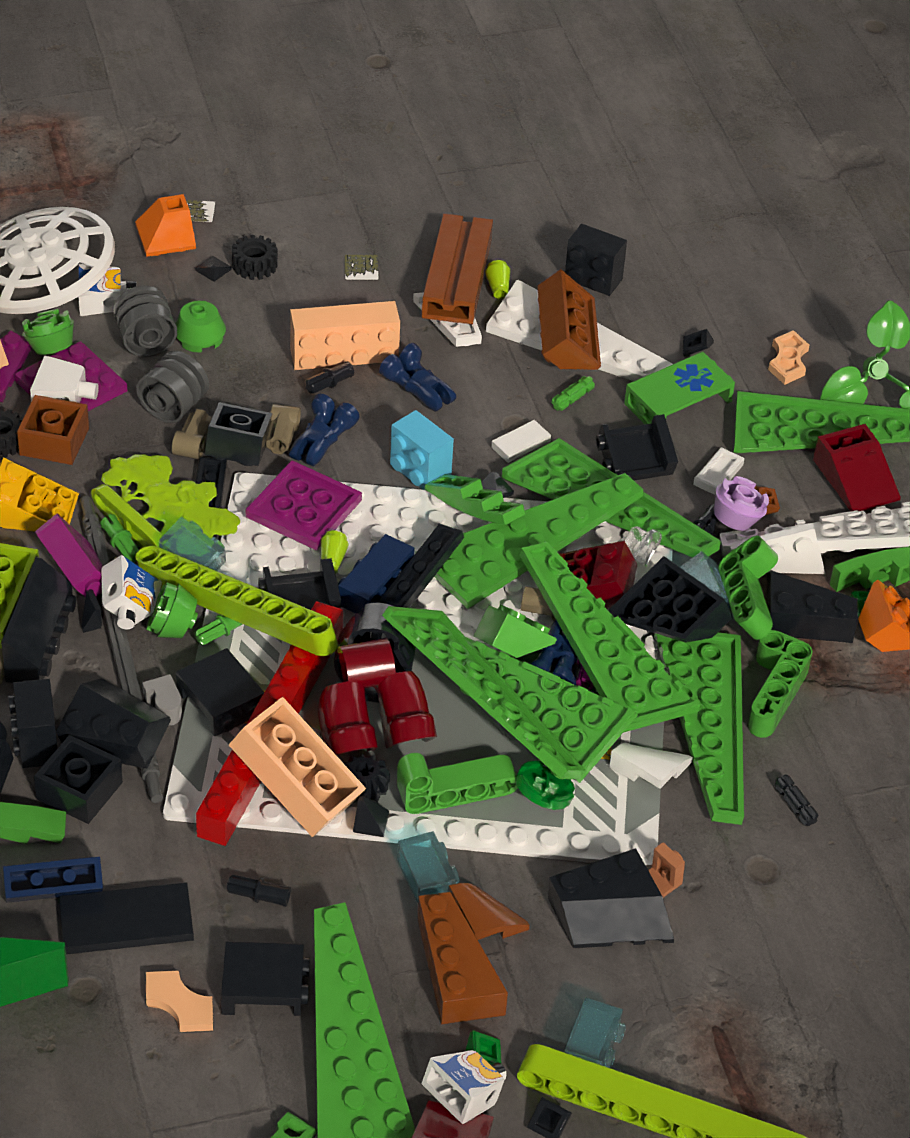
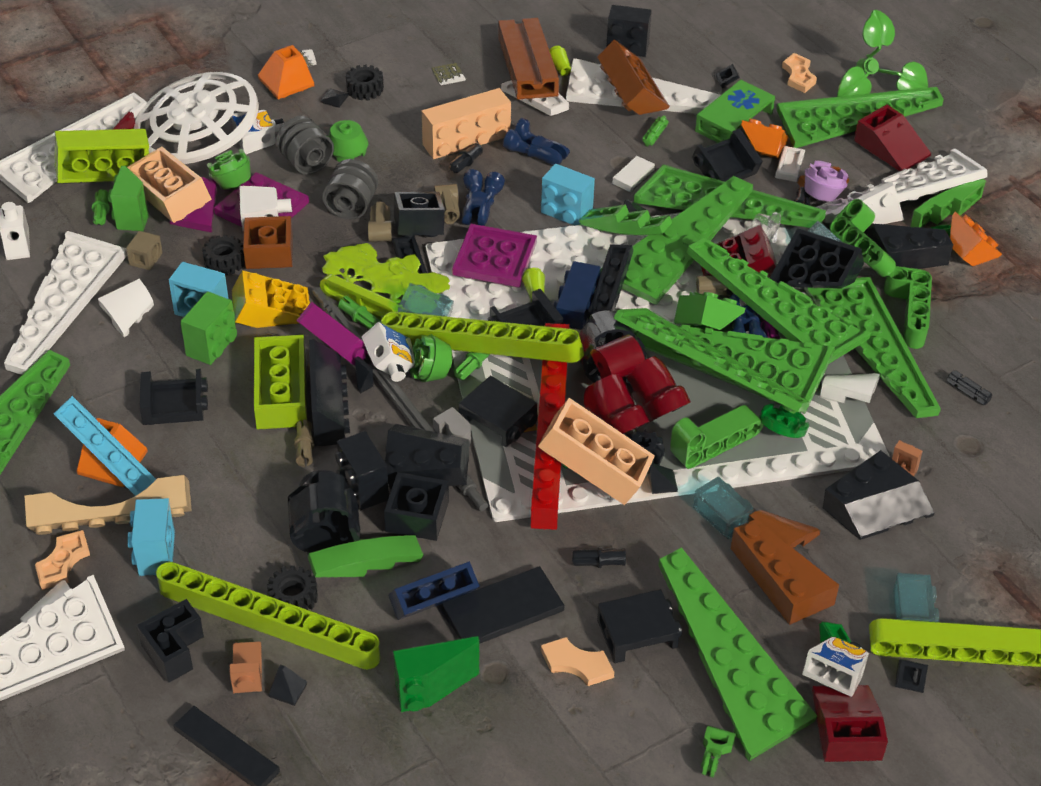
camera: 15 degrees left, 0 degrees up
(698, 433) = (765, 140): none -> orange slope

